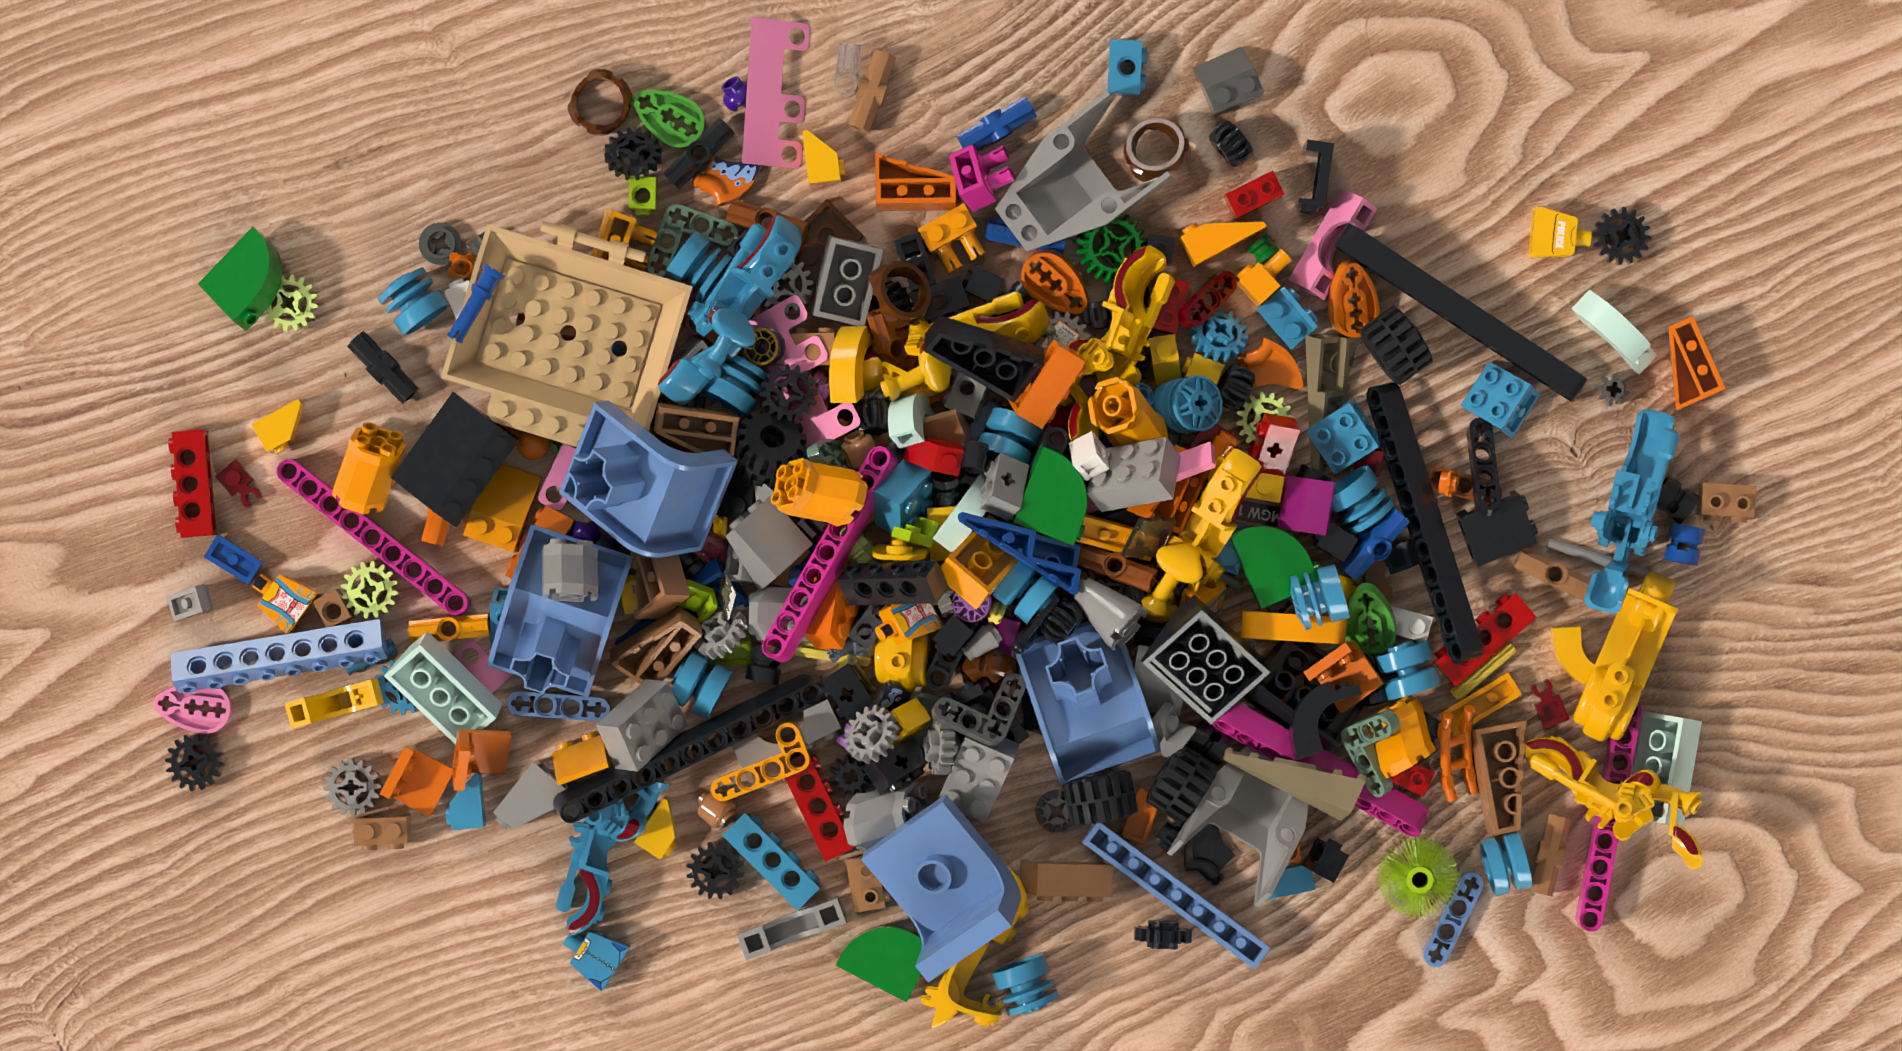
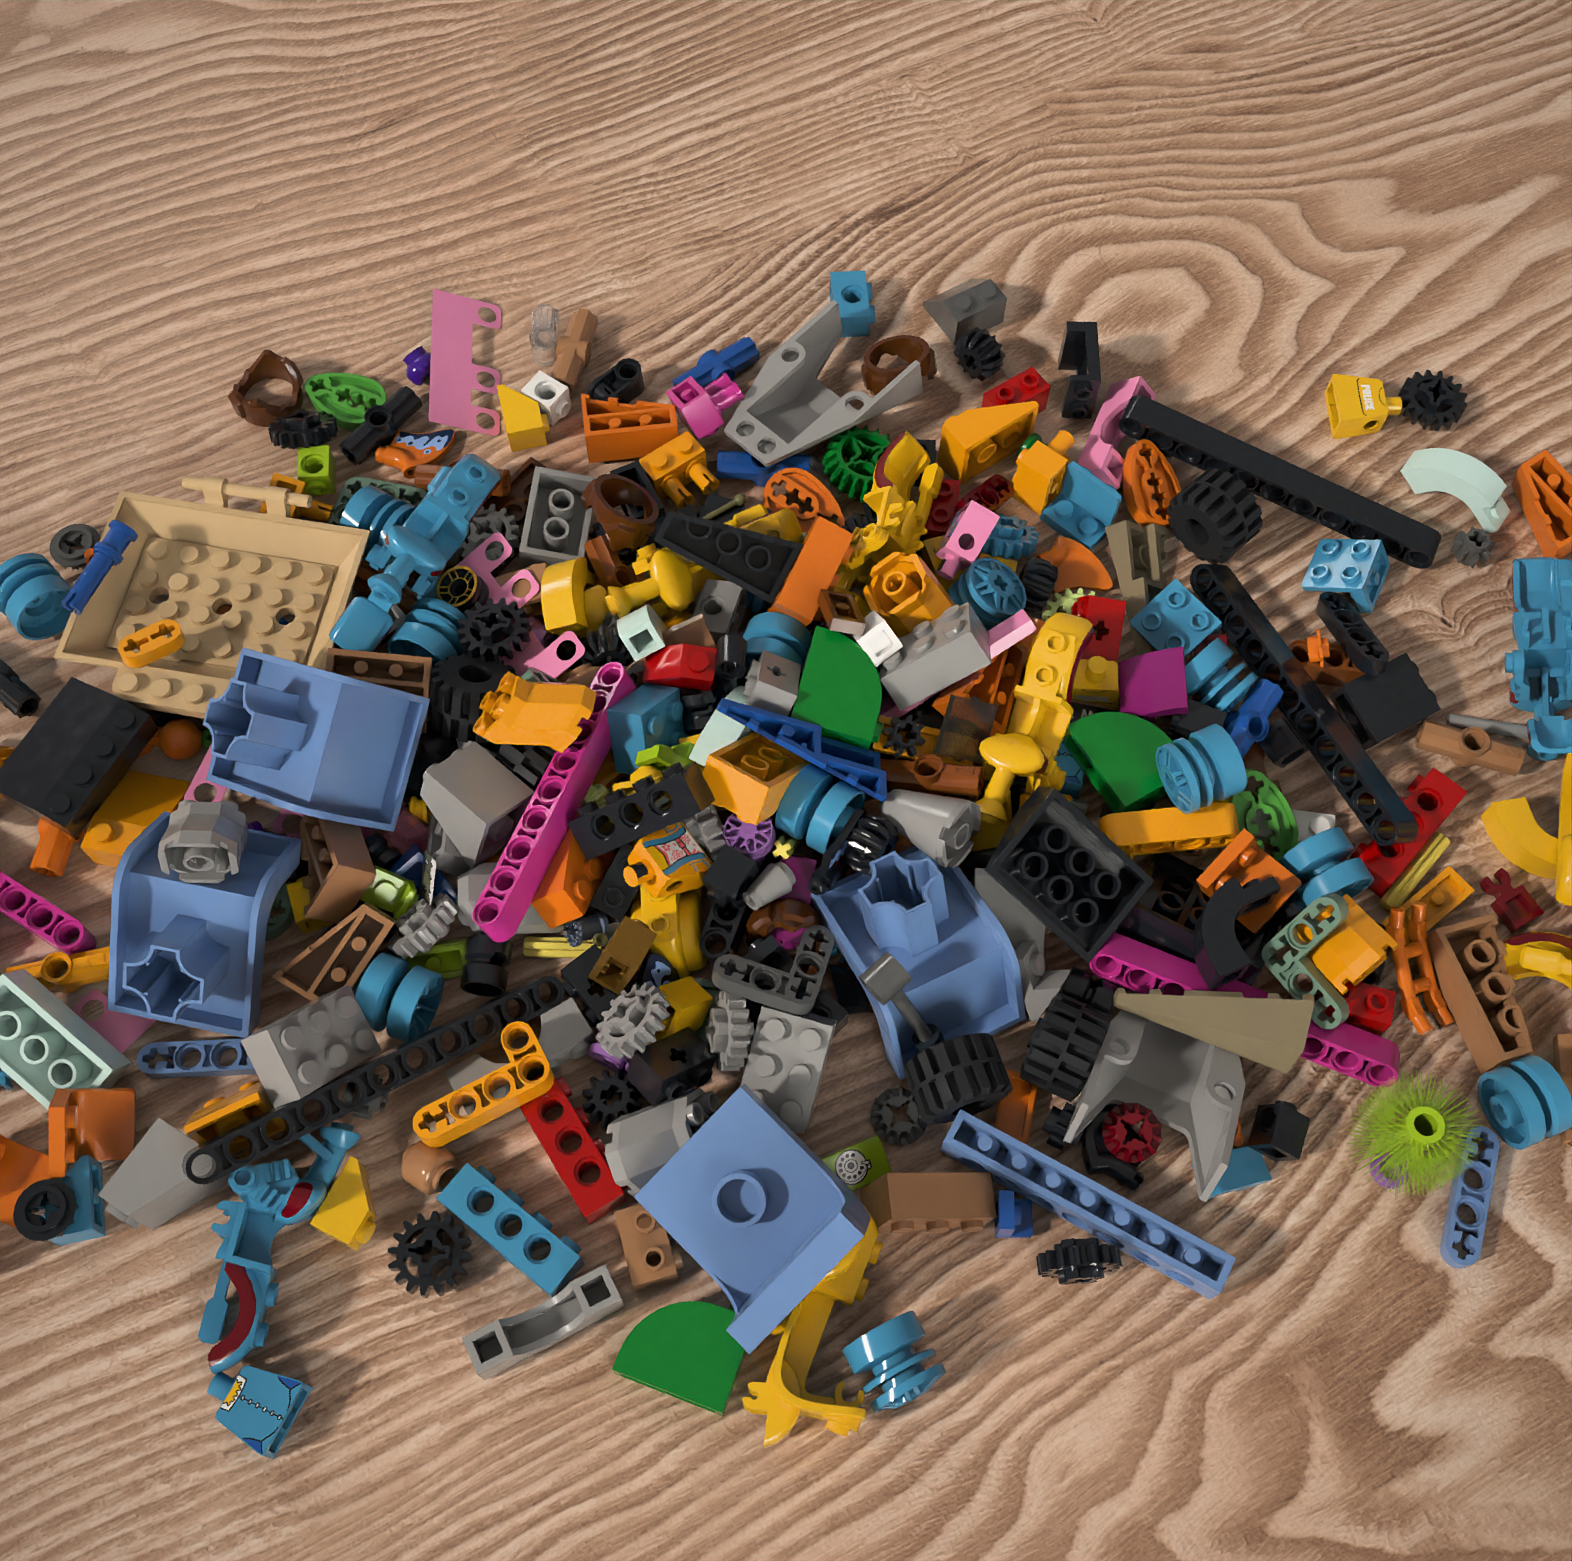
camera: 10 degrees left, 25 degrees down
(443, 821) = (35, 1199): none -> black gear
(514, 371) = (151, 643): none -> light orange beam
(842, 129) = (550, 394): none -> white brick
(869, 683) = (623, 955): none -> pearl gold brick
(906, 137) = (620, 382): none -> black piece
(1000, 278) = (740, 499): none -> olive hinge
(1018, 845) = (860, 1163): none -> slope
(1057, 740) = (885, 983): none -> dark grey piece
(1064, 434) = (841, 612): none -> reddish brown plate
(1101, 546) = (912, 733): none -> black gear
(1125, 895) = (1013, 1216): none -> blue bracket
(1179, 356) = (965, 539): none -> bright pink torso
(1220, 835) = (1114, 1132): none -> dark red gear

